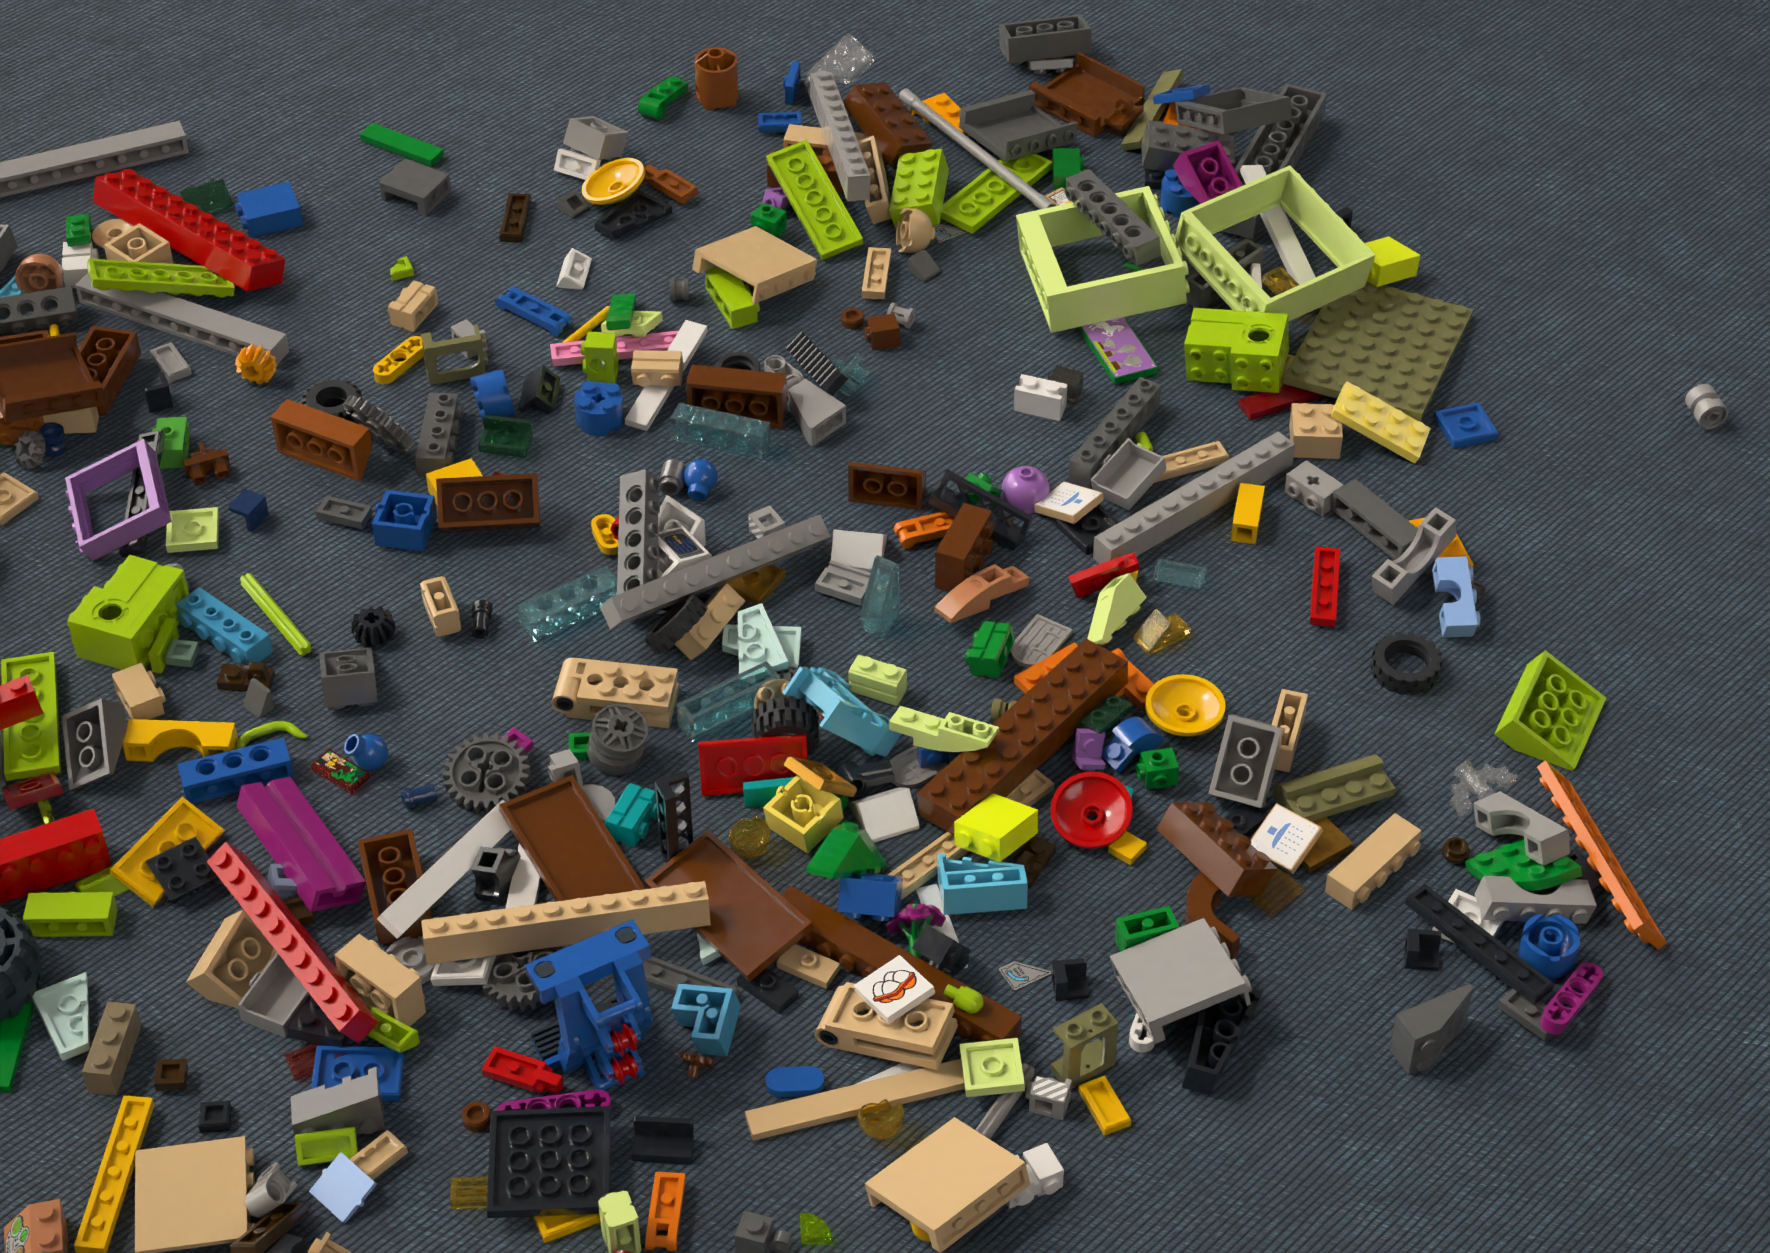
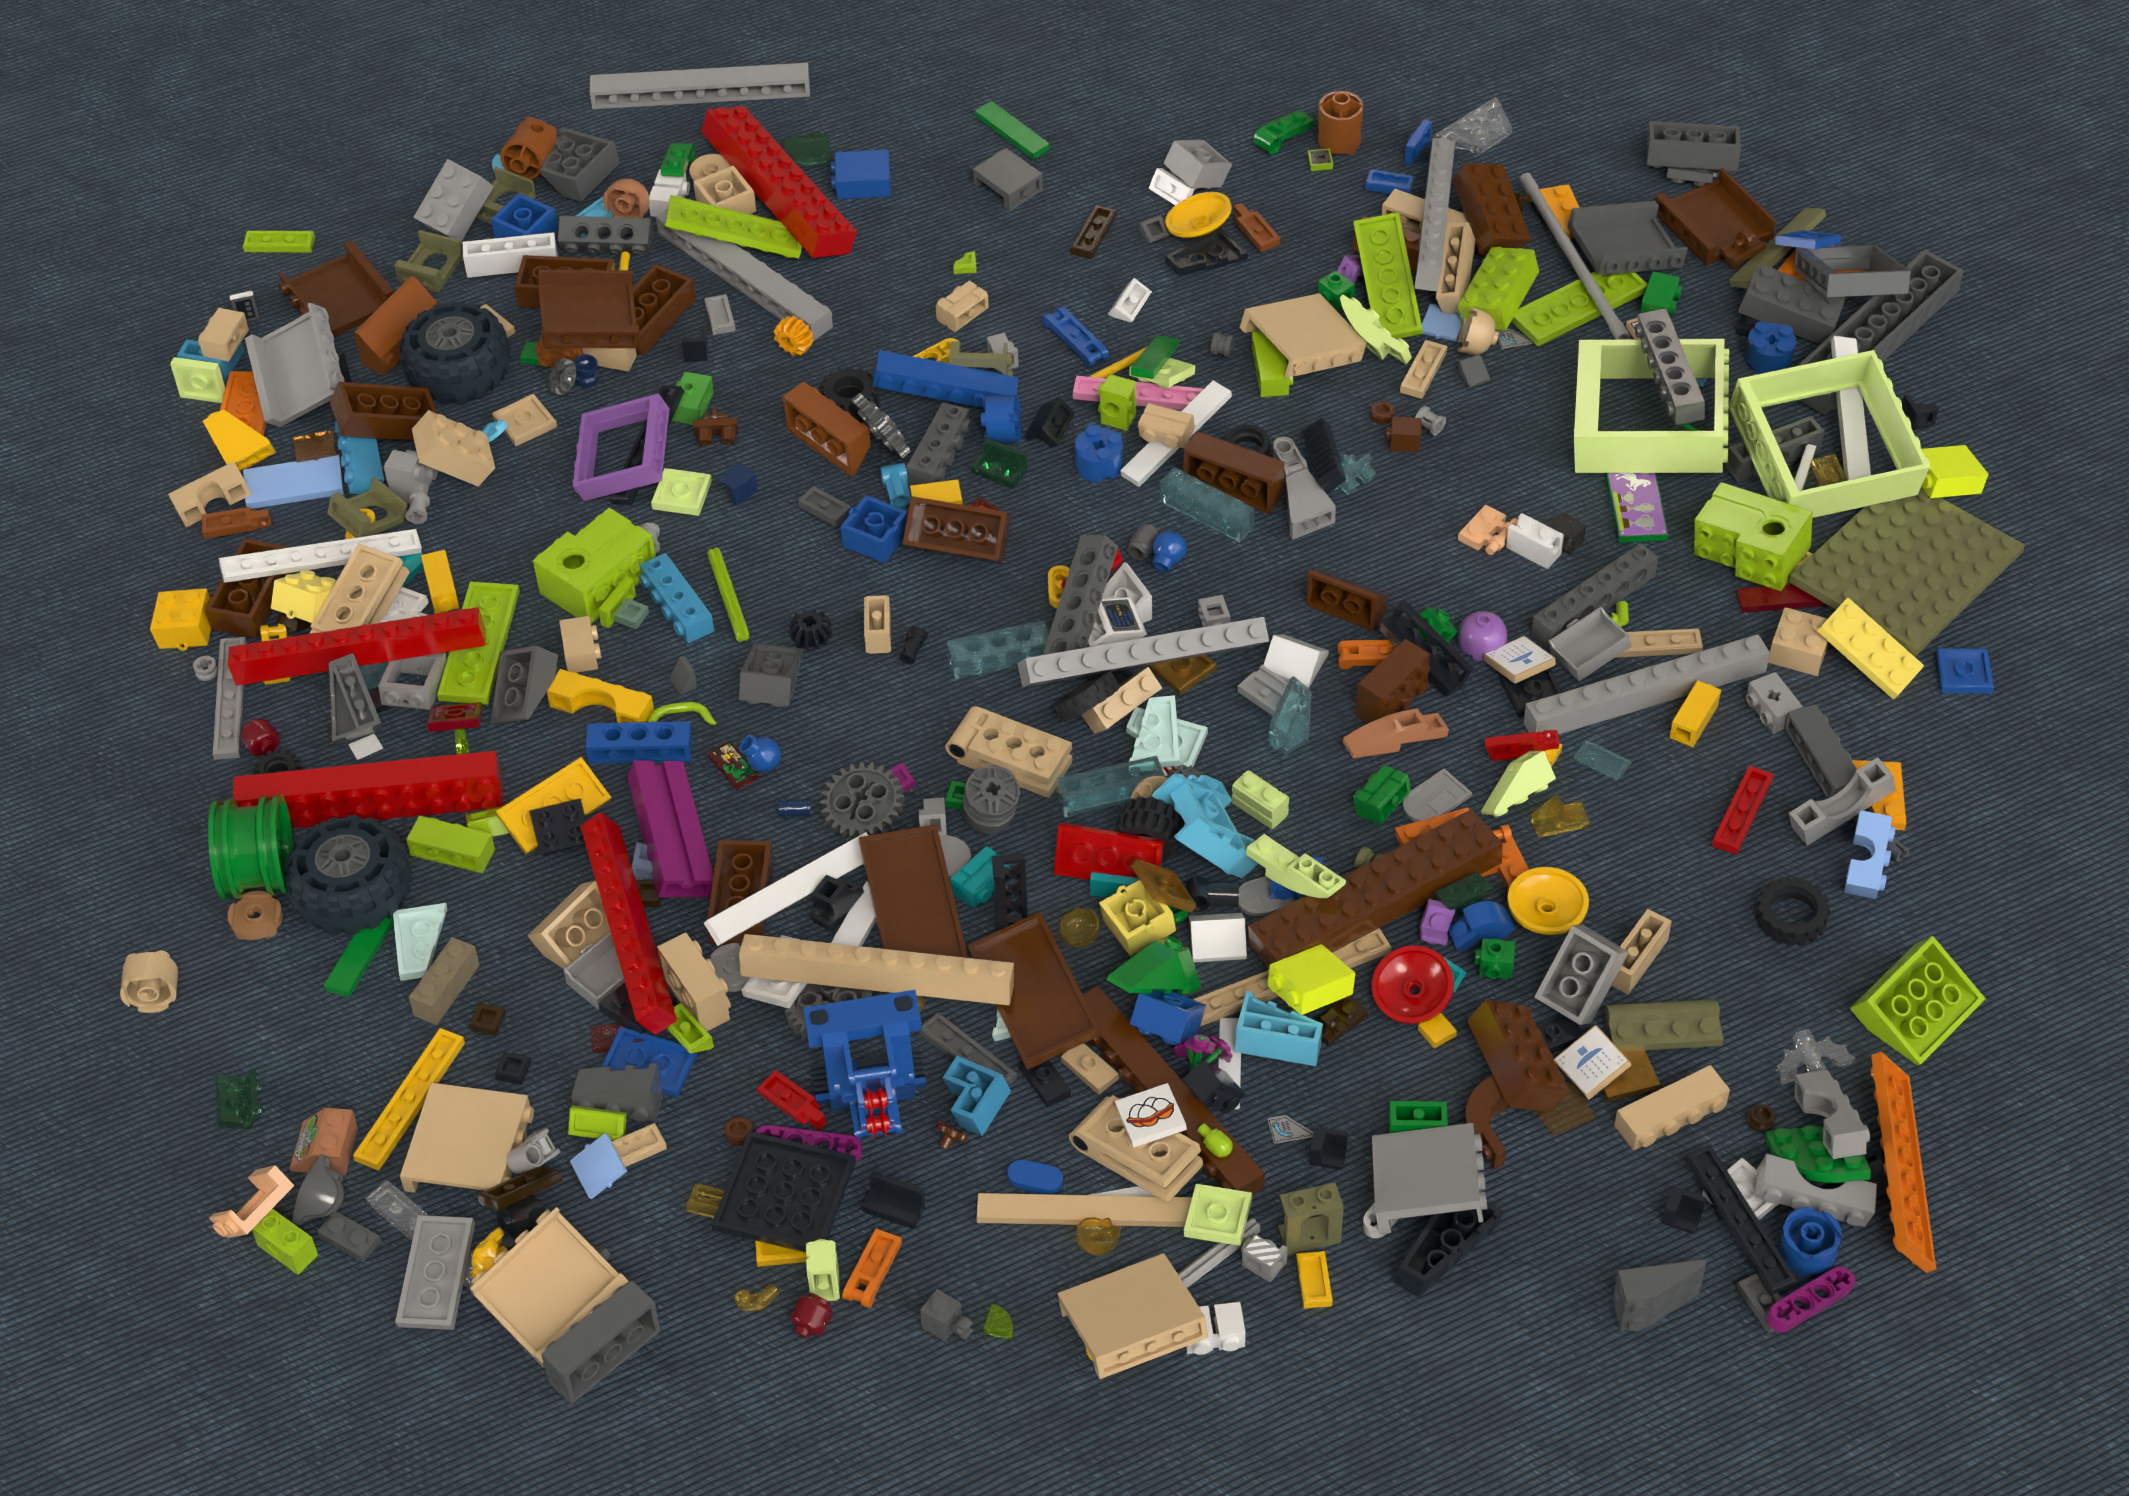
camera: 20 degrees right, 5 degrees up
(238, 677) = (672, 648): dark brown hinge -> none
(407, 474) = (896, 482): none -> dark azure piece
(418, 372) = (939, 379): none -> blue brick
(706, 115) = (1320, 159): none -> tile
(812, 243) = (1368, 326): none -> yellowish green slope
(876, 233) = (1441, 324): none -> light blue piece
(986, 397) = (1483, 527): none -> light nougat plate
(1206, 172) = (1795, 336): magenta slope -> none

